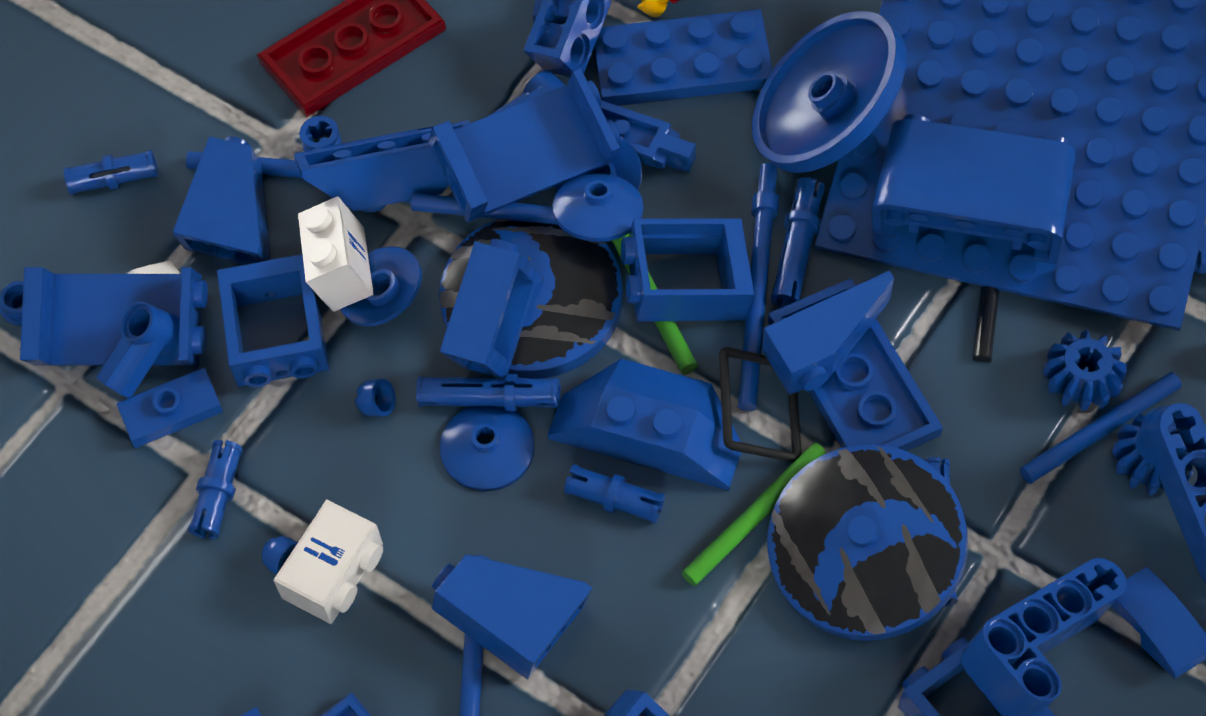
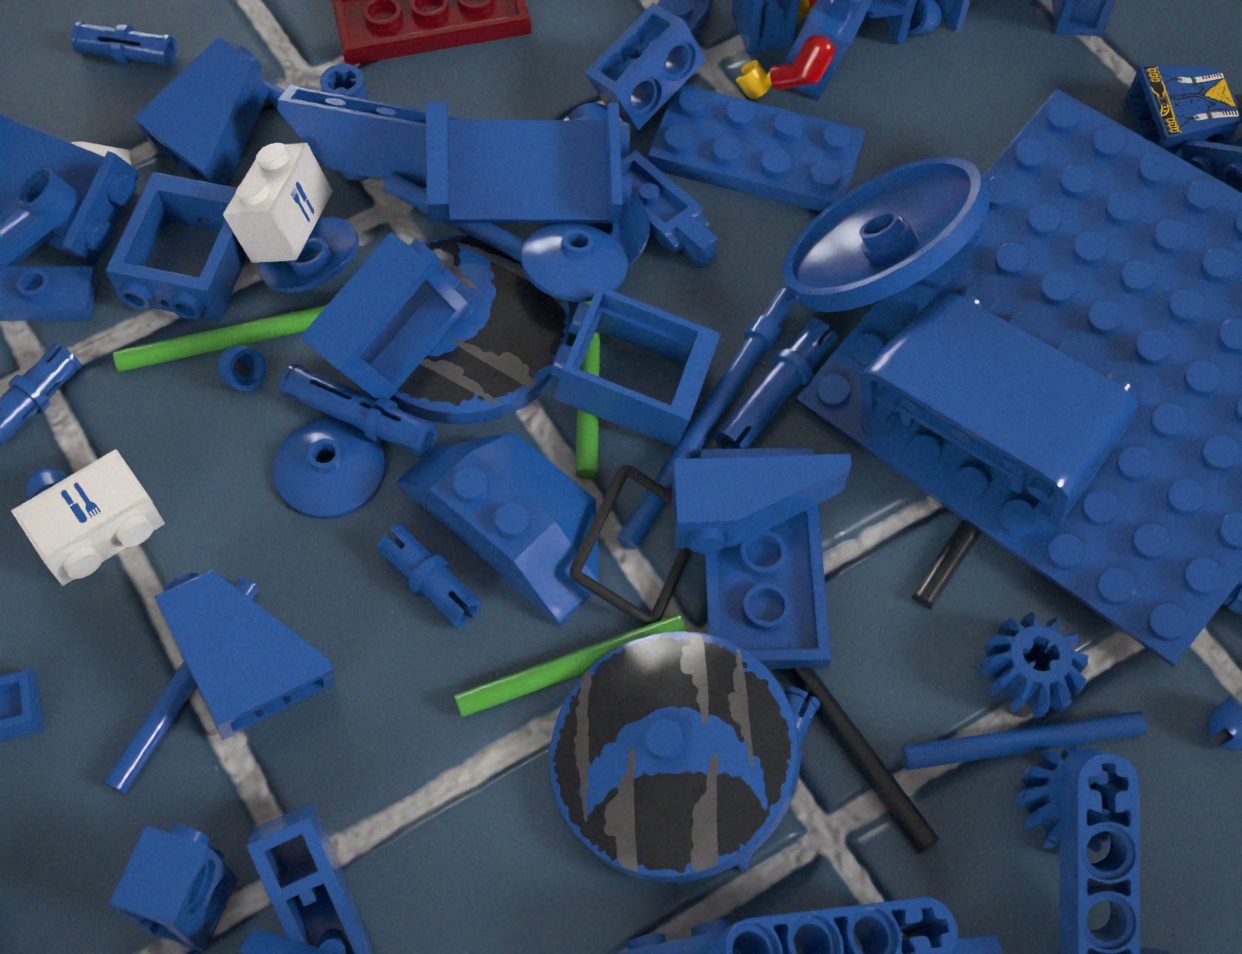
camera: 20 degrees right, 0 degrees up
(343, 381) = (215, 339): none -> bright green bar
(998, 488) = (865, 759): none -> black bar

